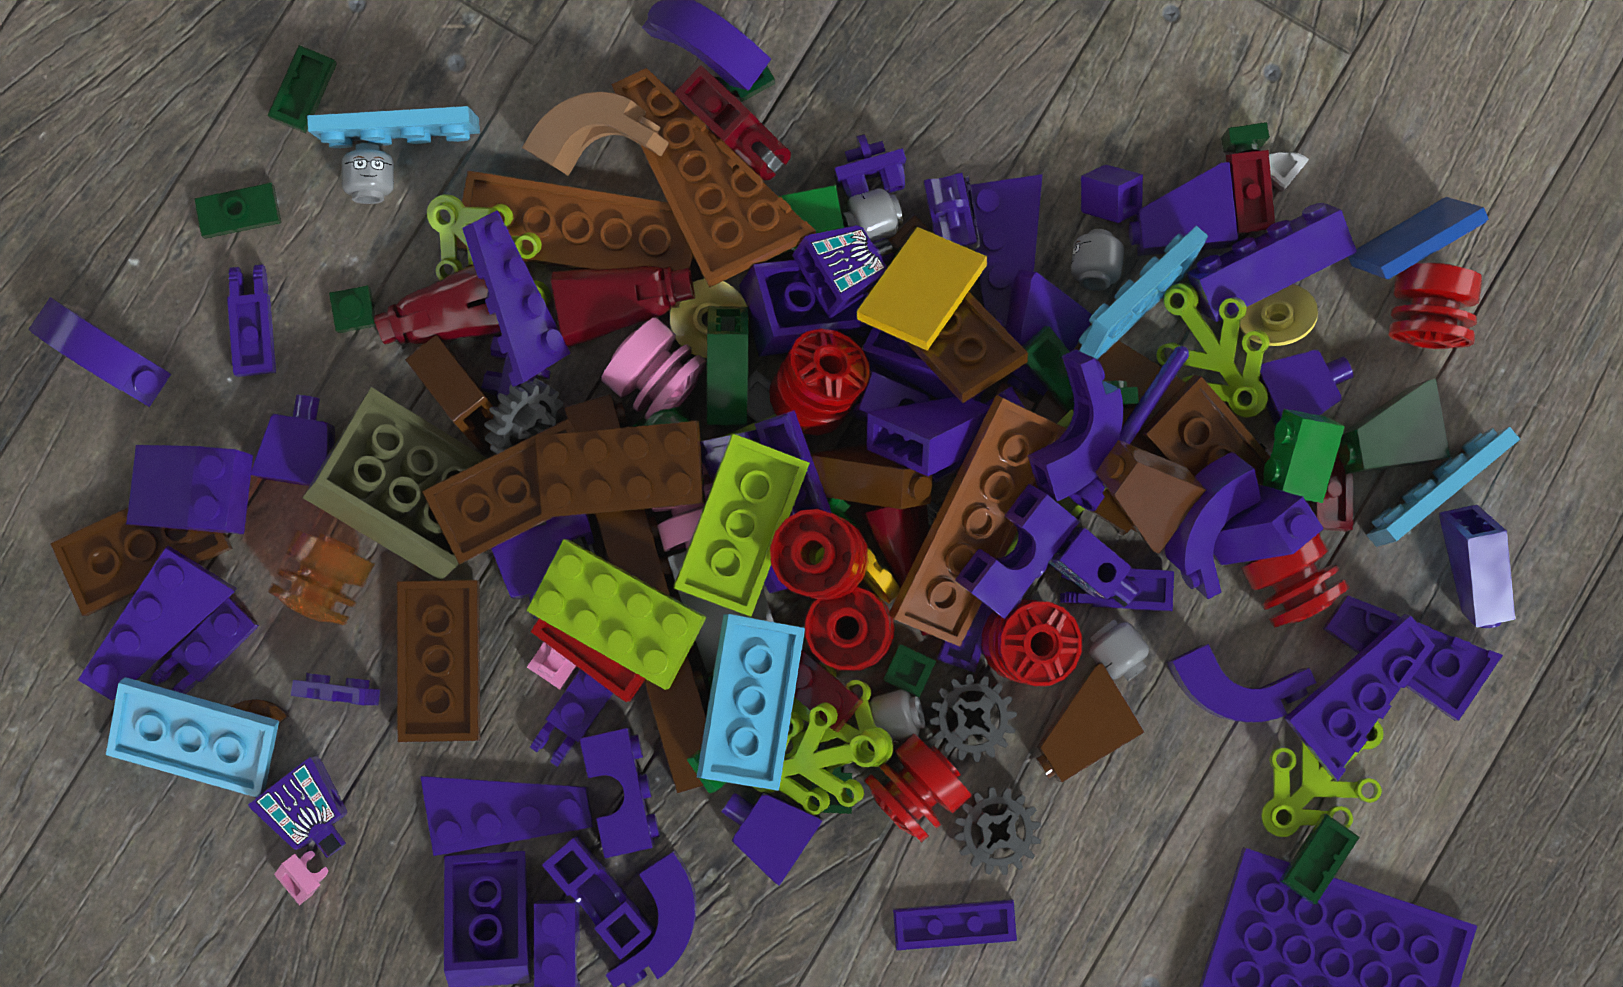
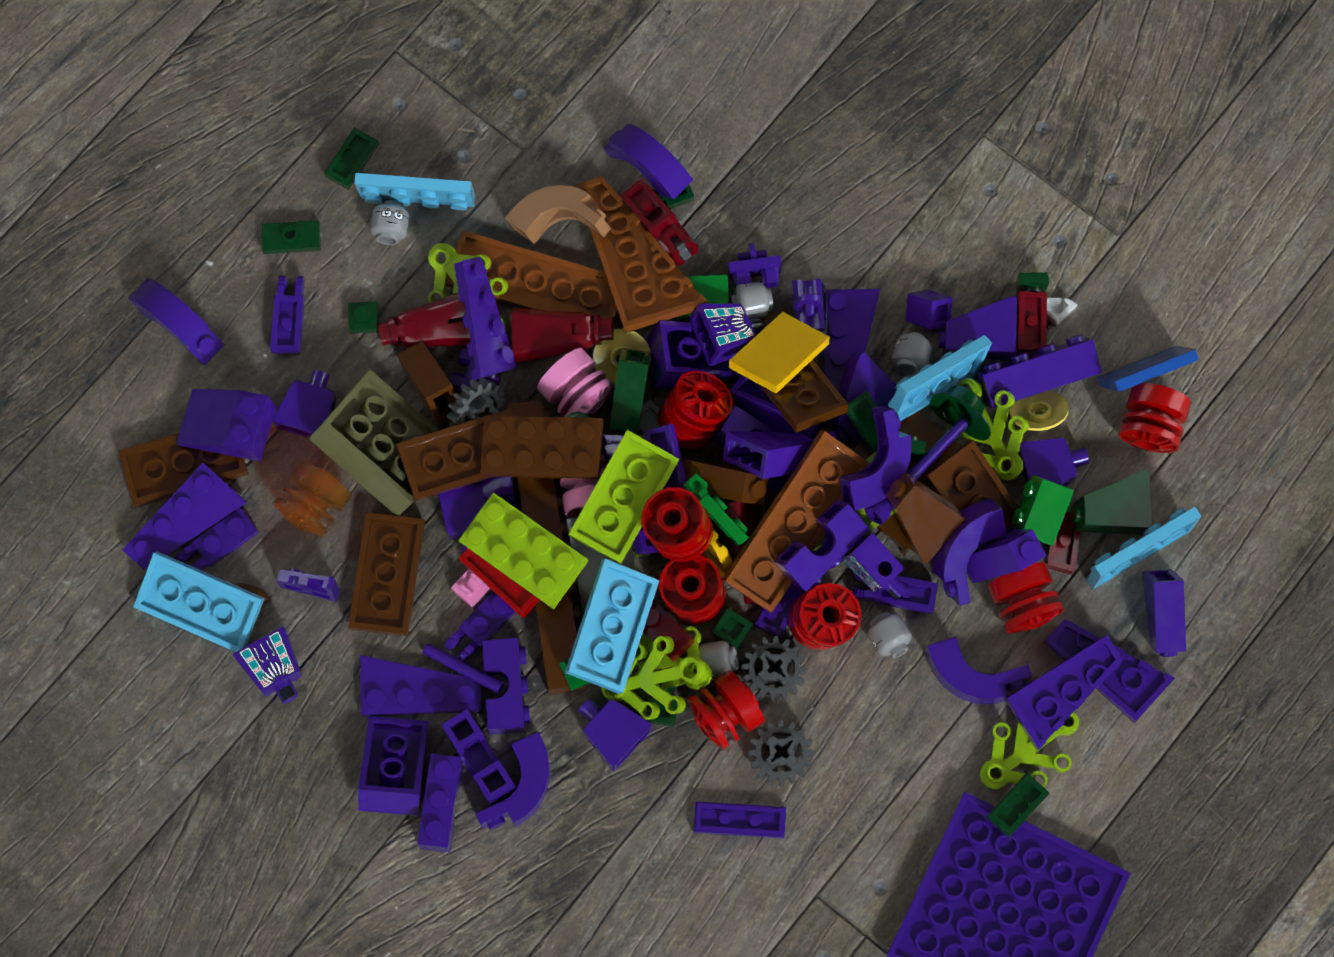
camera: 10 degrees right, 10 degrees down
(298, 879) = (259, 715): bright pink tile -> none
(560, 775) = (463, 668): none -> dark purple bar
(866, 520) = (715, 508): none -> green hinge
(1088, 727) = (858, 688): reddish brown slope -> none
(1178, 325) = (962, 404): none -> dark green piece

